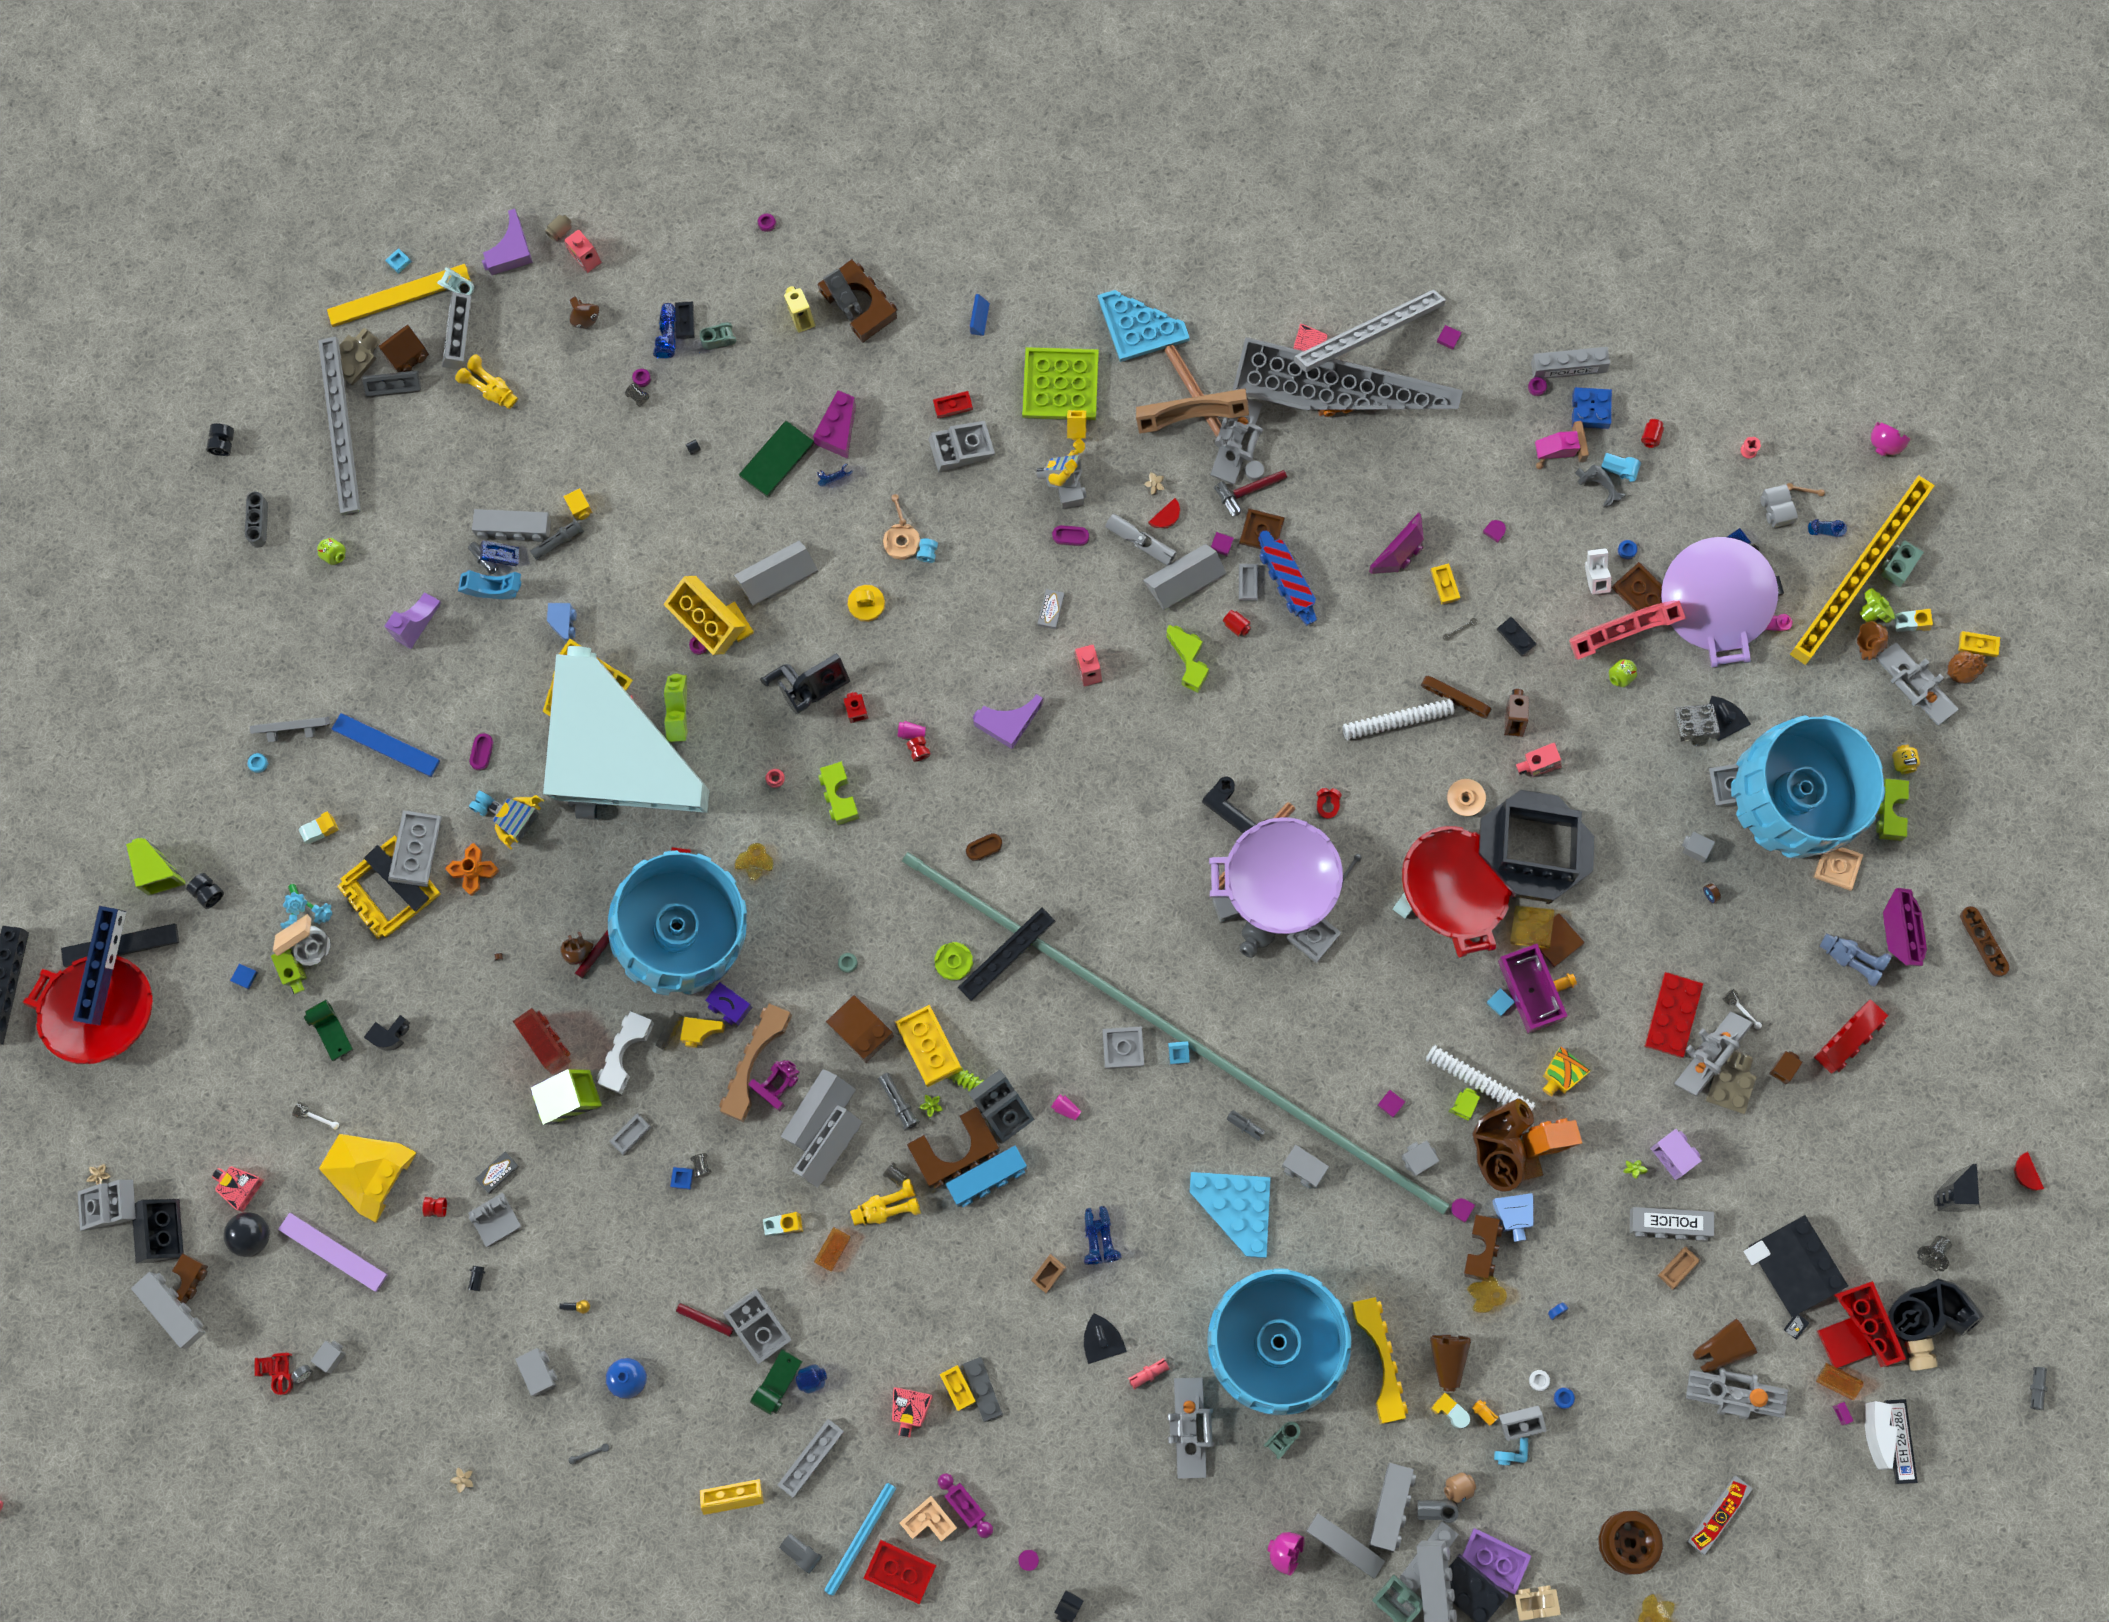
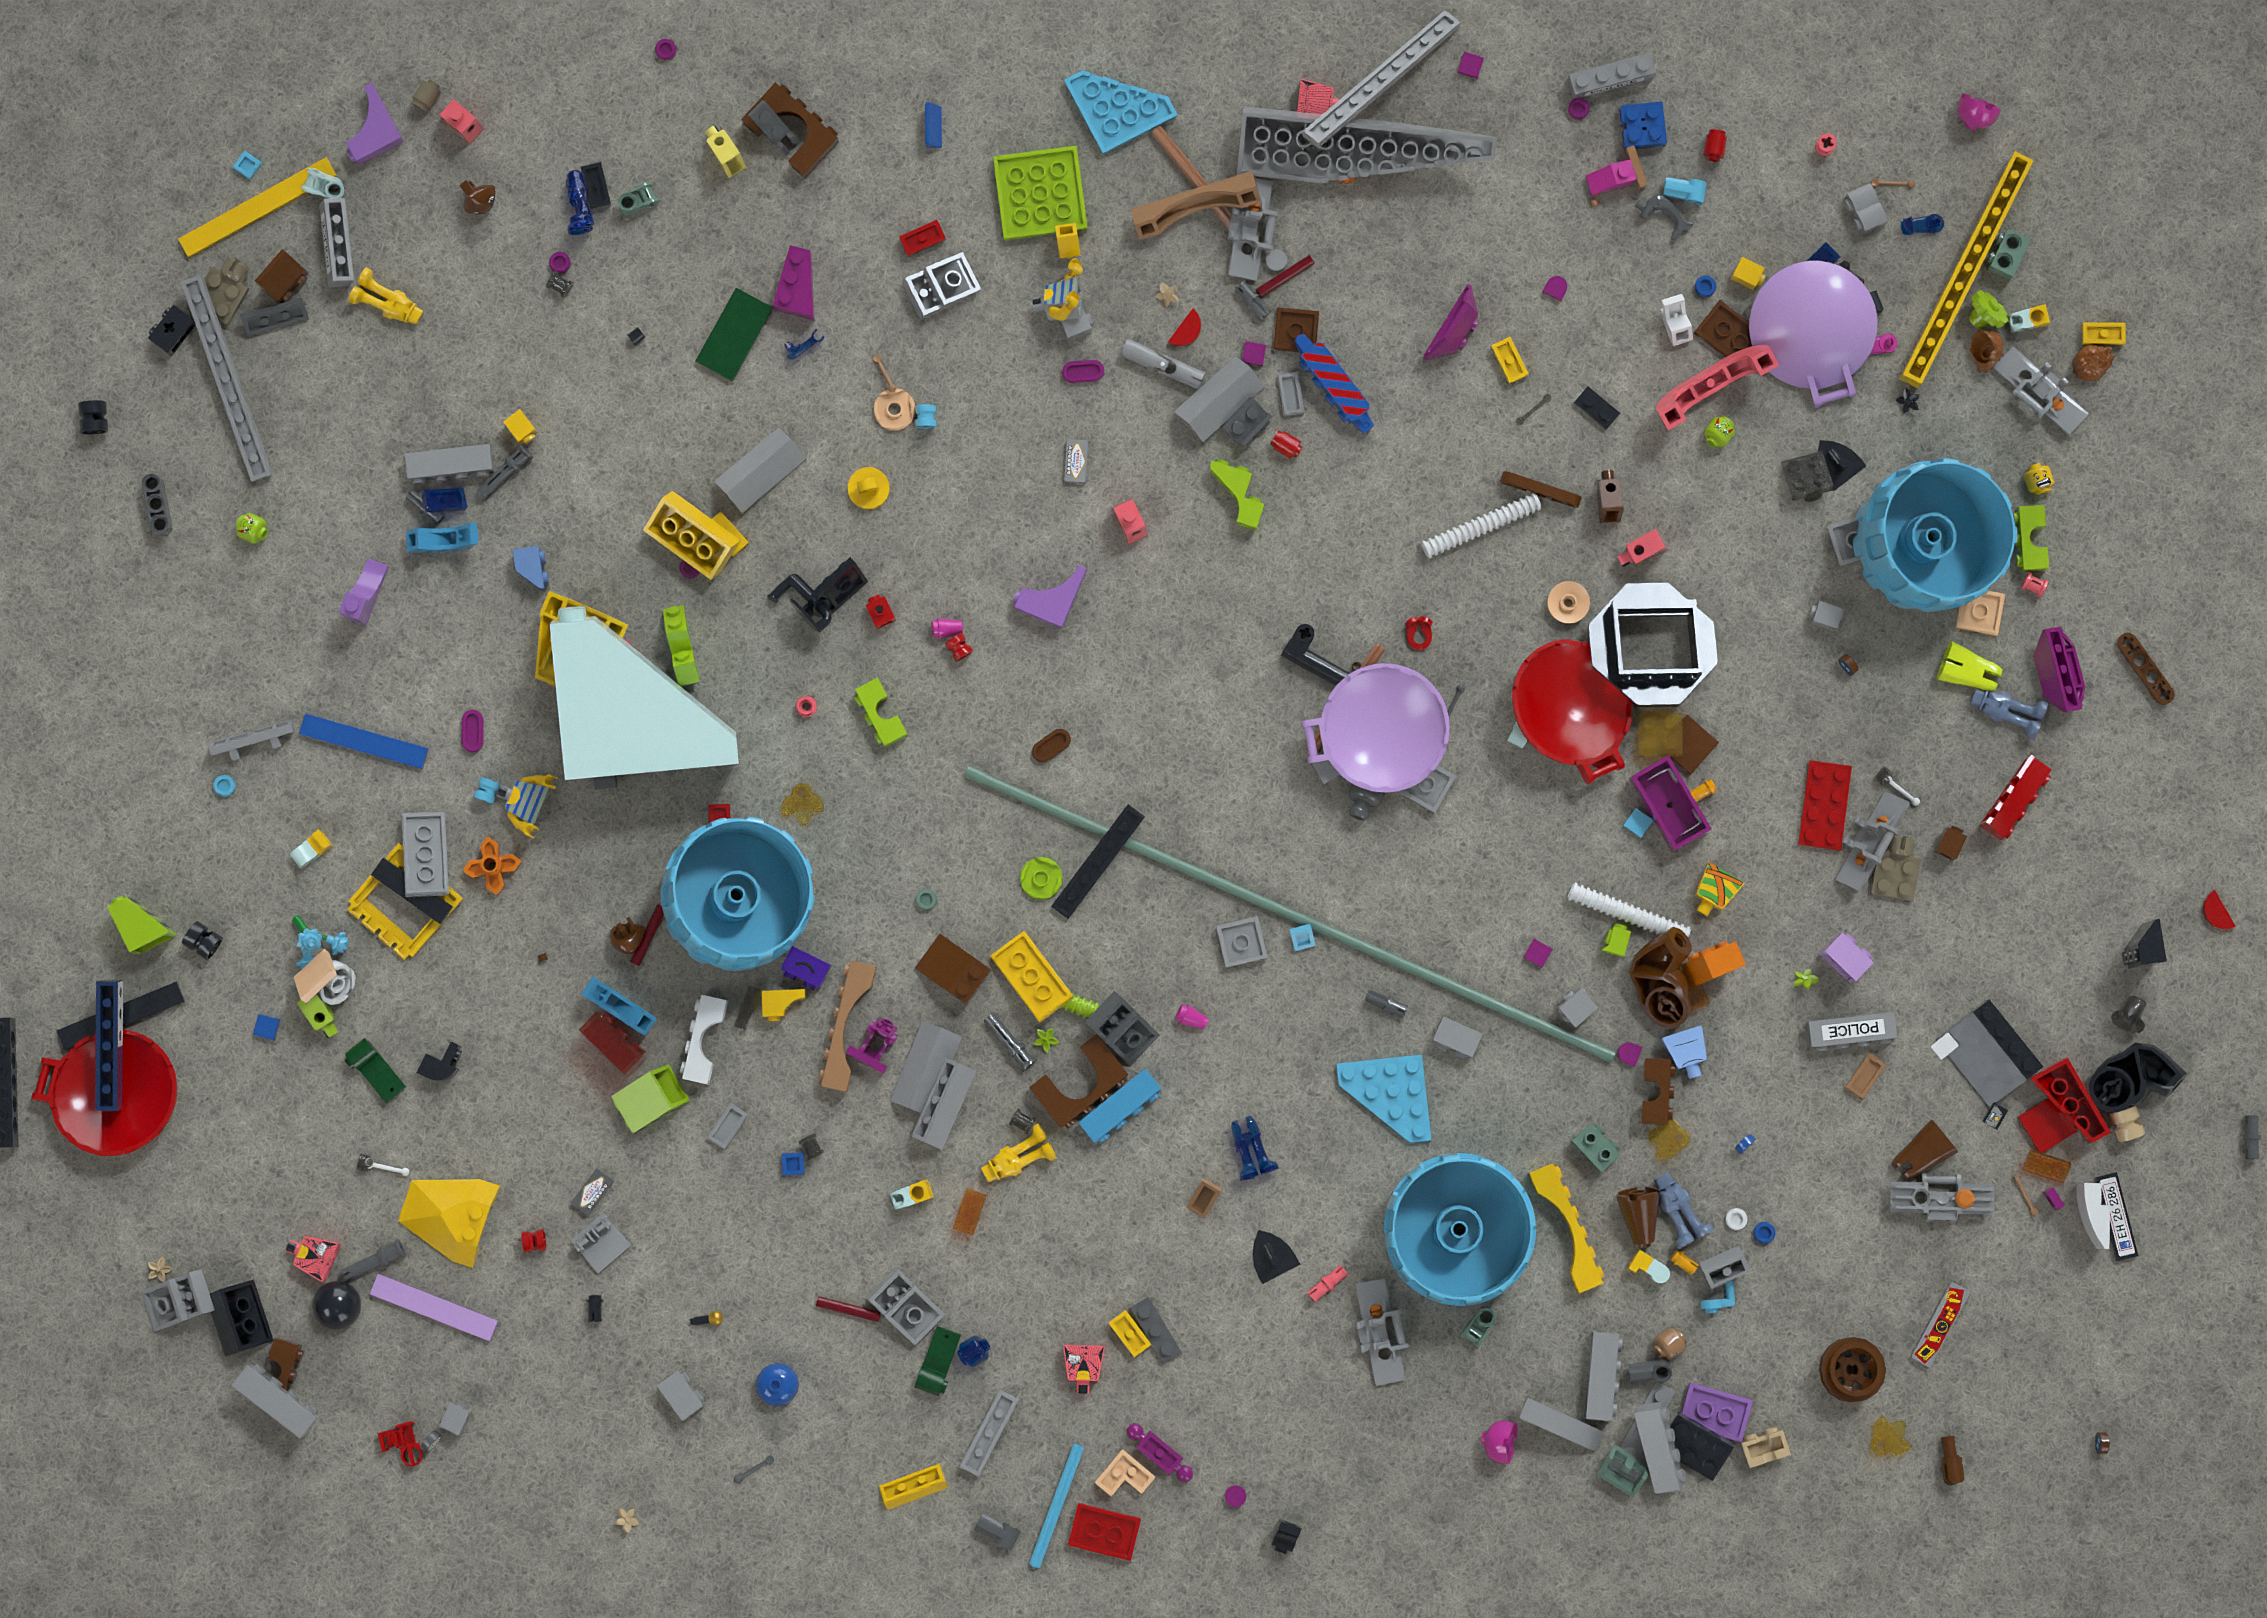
camera: 15 degrees left, 10 degrees up
(297, 1198) = (383, 1256): none -> dark grey pin
(301, 389) = (166, 339): none -> black brick
(554, 1008) = (619, 1006): none -> dark azure arch
(1204, 599) = (1246, 422): none -> dark grey bracket
(1417, 1290) = (1596, 1147): none -> sand green brick
(1485, 1351) = (1674, 1199): none -> sand blue piece
(1667, 544) = (1748, 274): none -> yellow brick
(1796, 673) = (1908, 400): none -> black plant
(1820, 914) = (1967, 668): none -> neon yellow piece
(1822, 1423) = (2033, 1211): none -> medium nougat hinge
(1891, 850) = (2034, 584): none -> coral bush

